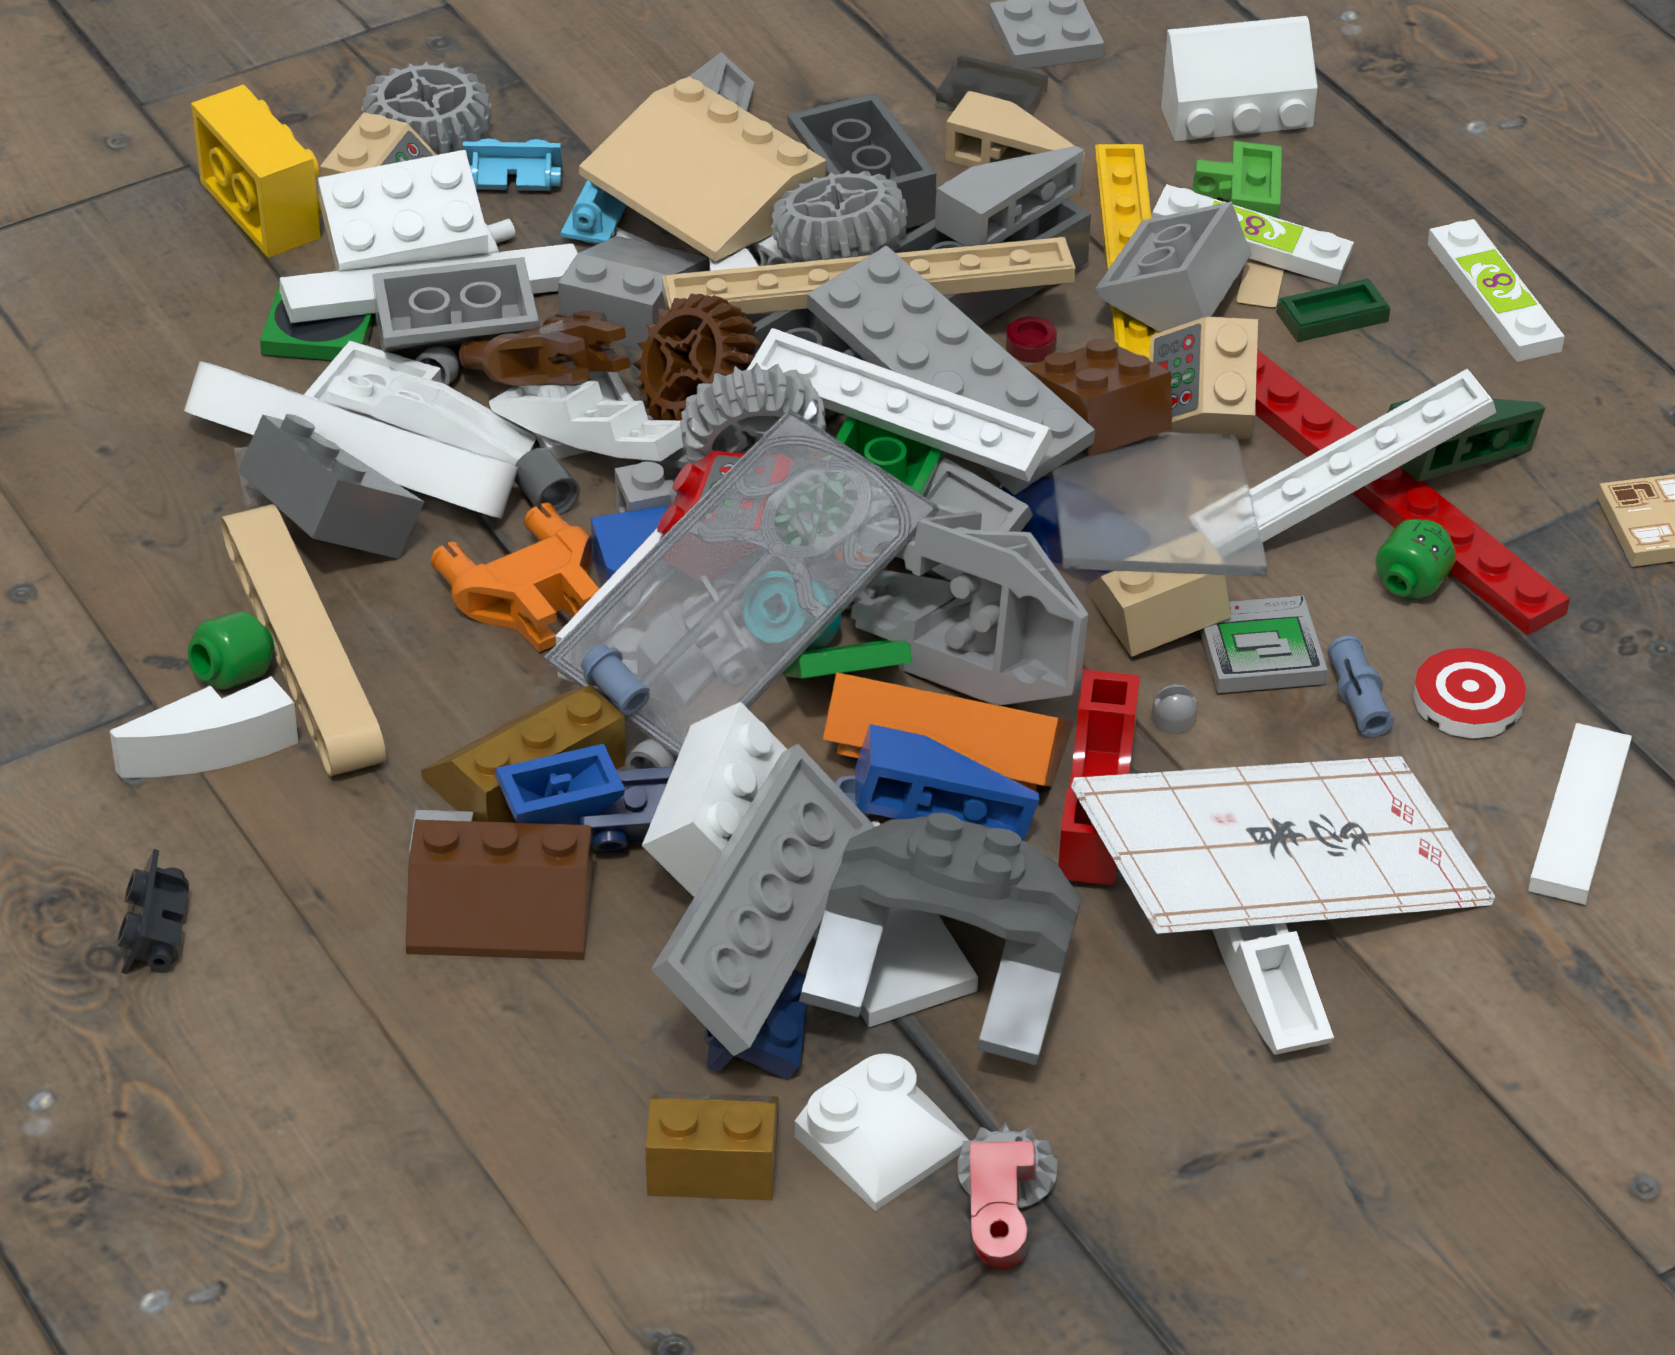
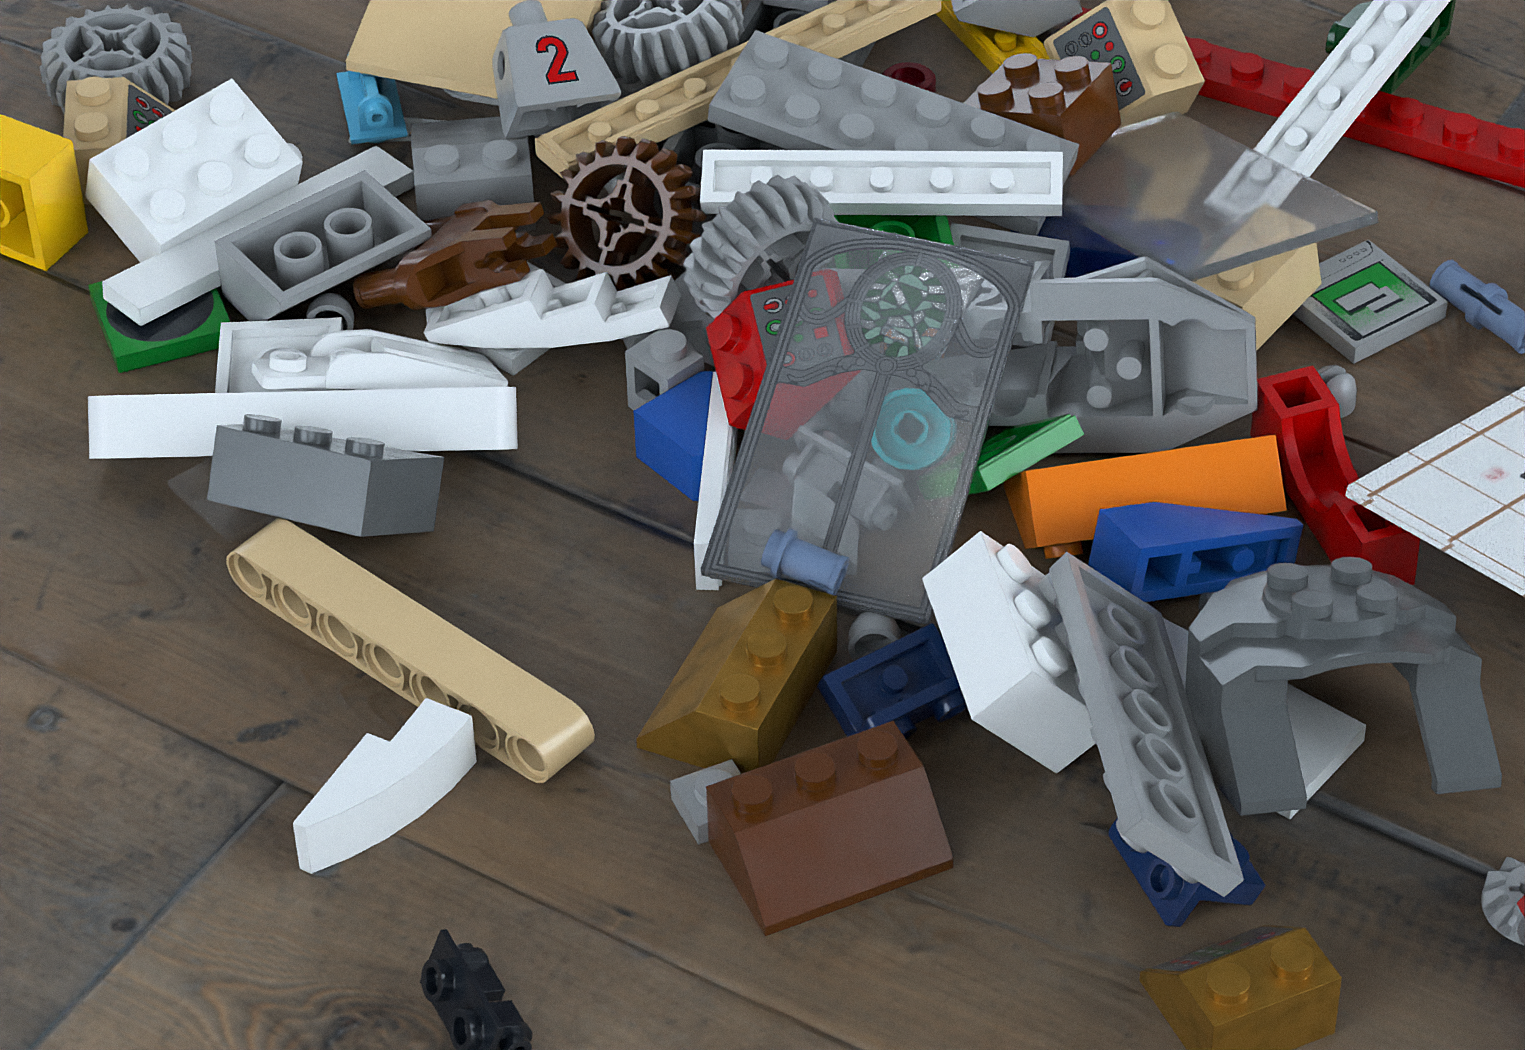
camera: 25 degrees left, 0 degrees up
(230, 650) = (344, 689): green head -> none
(527, 585) = (611, 509): orange connector -> none
(535, 163) = (268, 76): medium azure hinge -> none
(546, 480) = (544, 394): dark grey beam -> none
(561, 786) = (833, 691): blue slope -> none
(705, 225) = (548, 73): none -> light grey torso
(878, 1129) = (1392, 916): white slope -> none
(1415, 558) = (1448, 163): green head -> none

